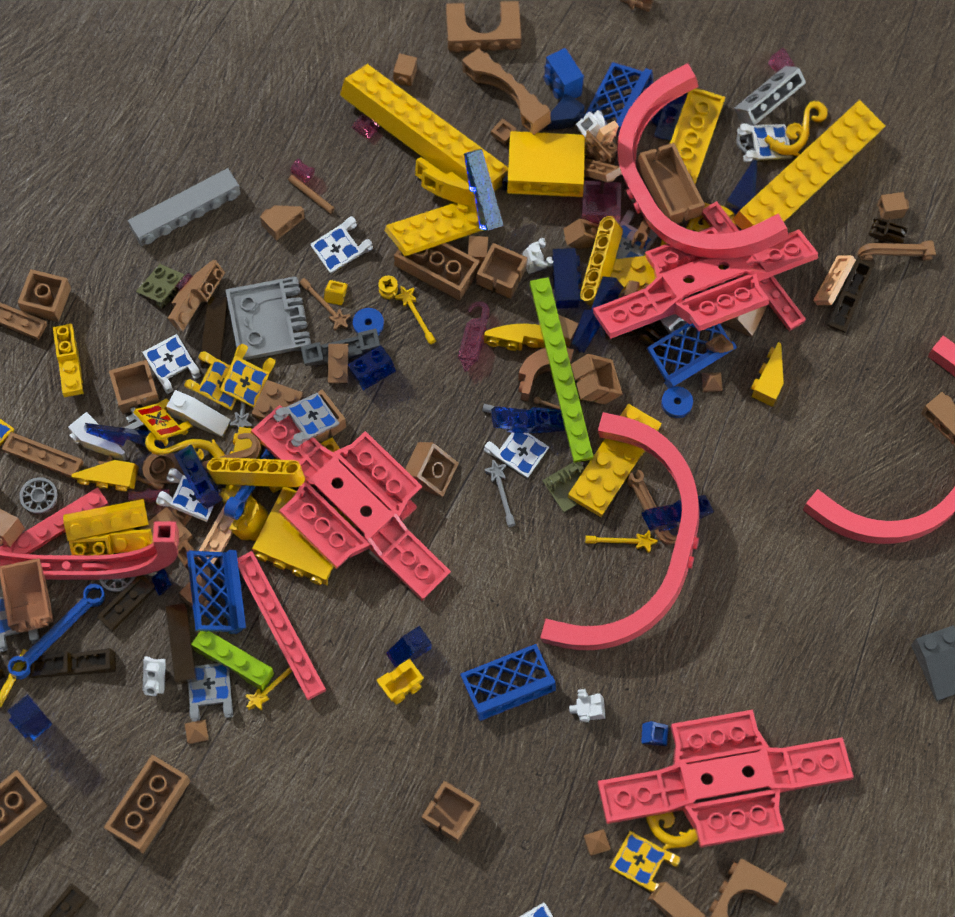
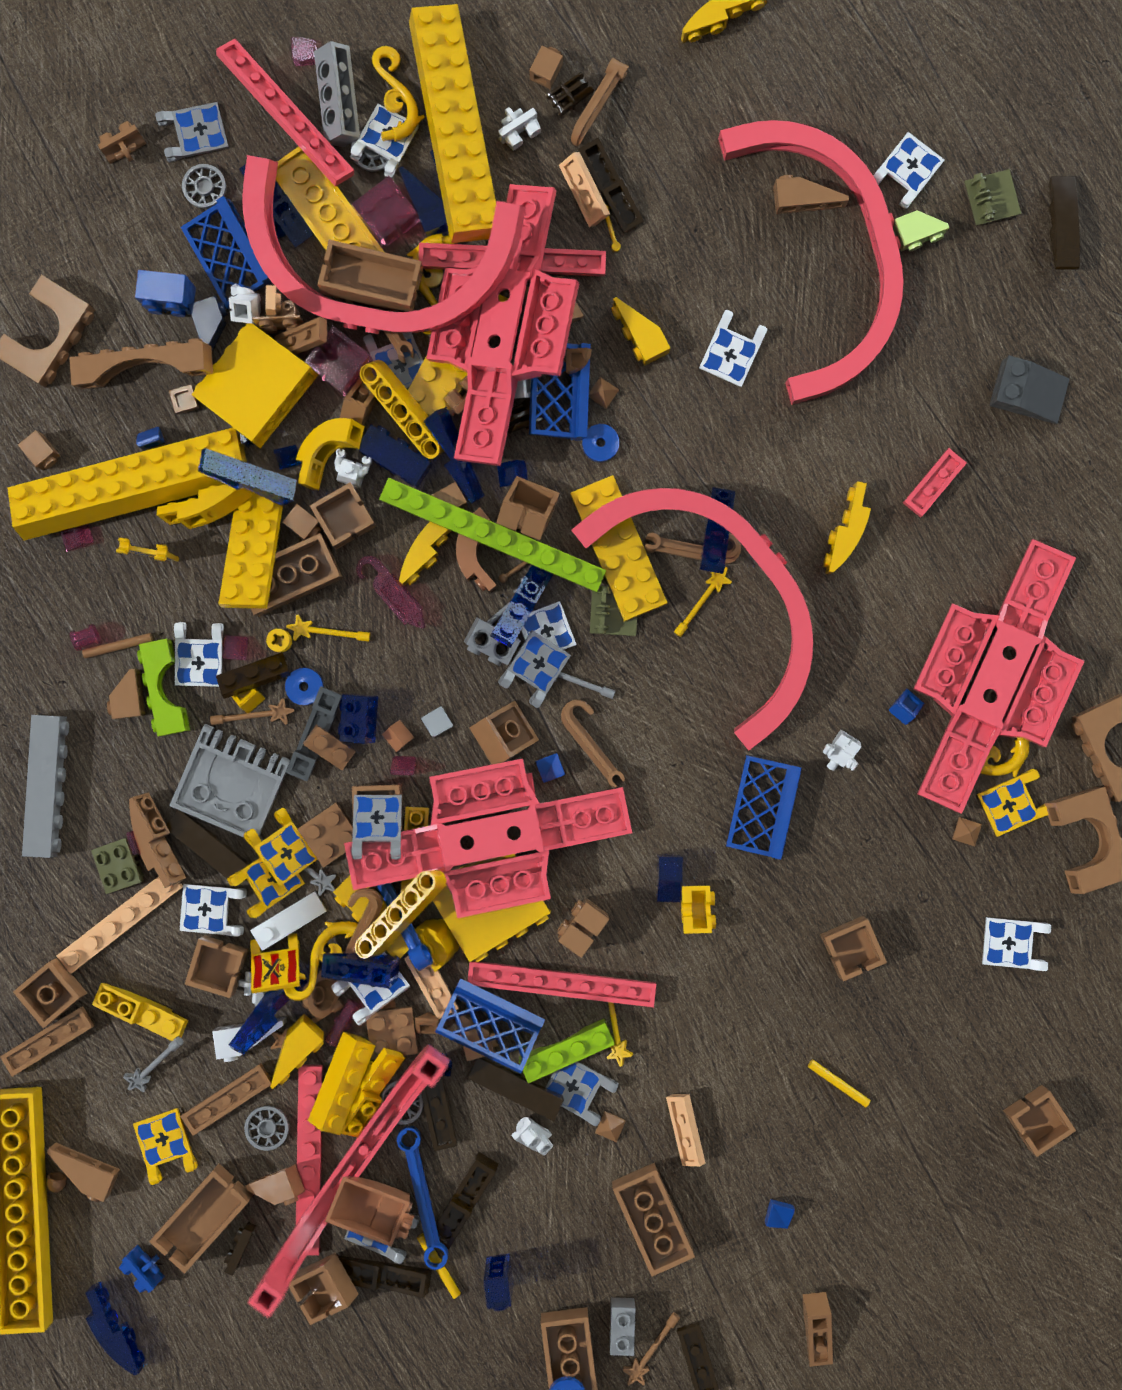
camera: 55 degrees left, 20 degrees up
(20, 390) = (139, 1078): none -> light grey piece
(21, 877) = (637, 1370): none -> medium nougat piece
(49, 838) = (622, 1326): none -> light grey brick
(120, 310) = (116, 924): none -> light nougat plate
(211, 900) = (779, 1214): none -> blue slope
(230, 785) = (685, 1130): none -> light nougat plate
(318, 222) = (156, 660): none -> lime arch
(331, 607) = (585, 922): none -> medium nougat piece
(342, 868) = (839, 1083): none -> yellow bar
(352, 285) = (253, 675): none -> dark brown plate
(359, 420) = (403, 765): none -> clear pink slope
(362, 265) = (235, 647): none -> clear pink slope
(378, 403) = (398, 735): none -> nougat slope
(389, 172) = (160, 554): none -> yellow flag
(405, 421) = (437, 722): none -> light grey slope
(429, 515) = (550, 767): none -> blue slope
(462, 127) = (150, 438): none -> blue slope
(464, 529) = (587, 743): none -> medium nougat piece
(483, 418) = (490, 643): none -> light grey brick
(494, 458) = (537, 664): none -> light grey flag
(514, 215) = (287, 456): none -> clear blue slope
(537, 227) = (322, 444): none -> yellow arch
(618, 358) = (509, 470): none -> clear blue slope
(649, 58) = (203, 185): none -> light grey wheel
(680, 34) = (197, 129): none -> light grey flag
(719, 166) = (383, 209): none -> clear pink piece
(733, 74) = (285, 112): none -> coral plate
(740, 607) = (845, 539): none -> yellow slope
(804, 445) = (731, 353): none -> white flag
(814, 326) = (615, 245): none -> yellow hinge
(827, 641) = (934, 482): none -> coral plate
(842, 213) = (515, 124): none -> white hips

